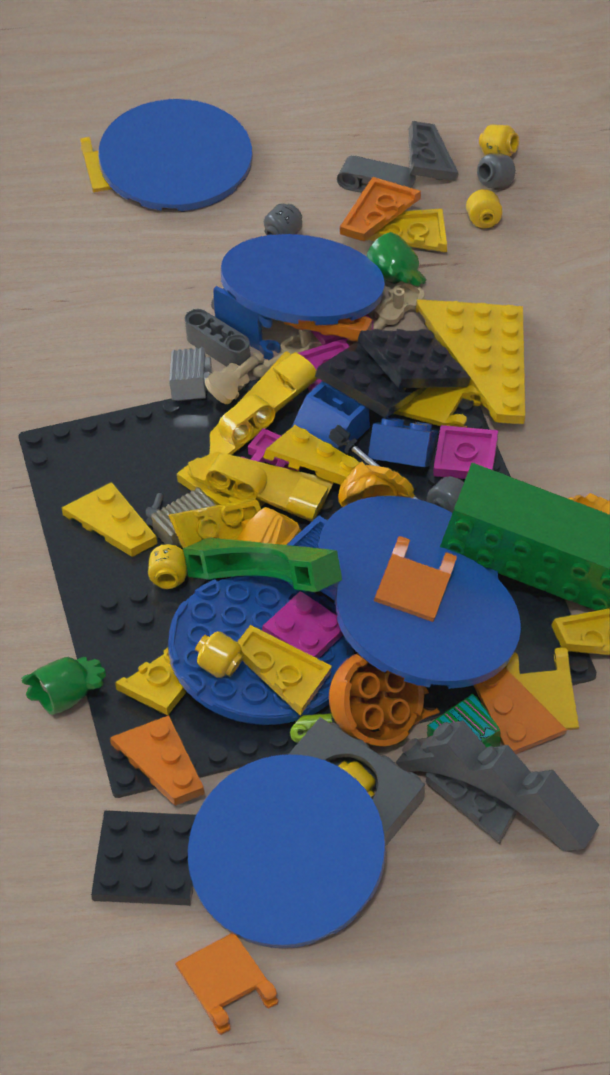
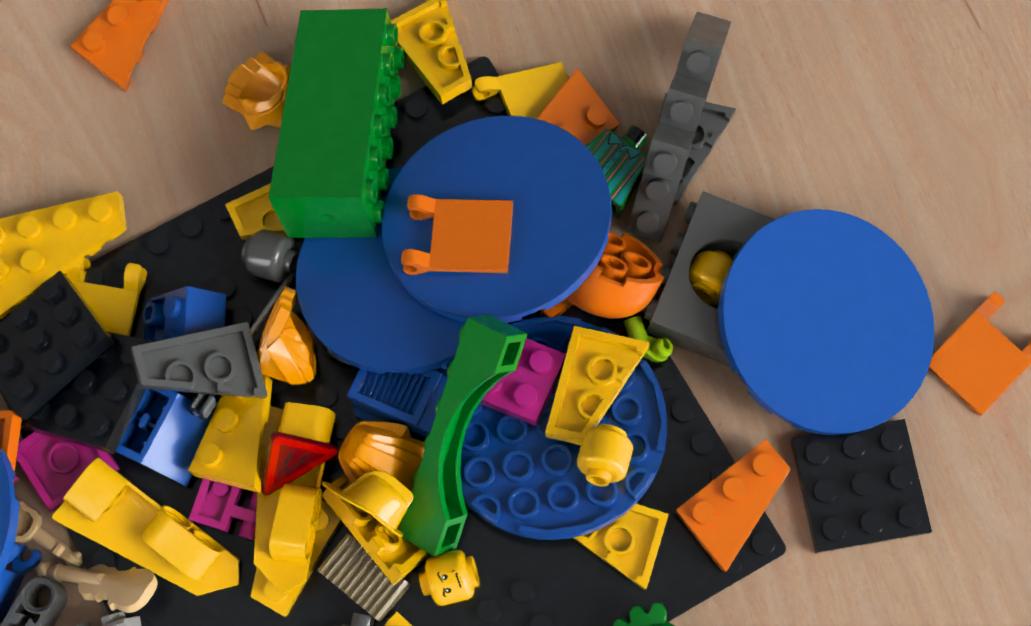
camera: 105 degrees left, 25 degrees up
(233, 513) = (378, 495): none -> yellow piece
(279, 474) = (292, 457): none -> piece
(365, 431) = (203, 362): none -> dark grey wing
(461, 447) = (188, 252): dark pink plate -> none

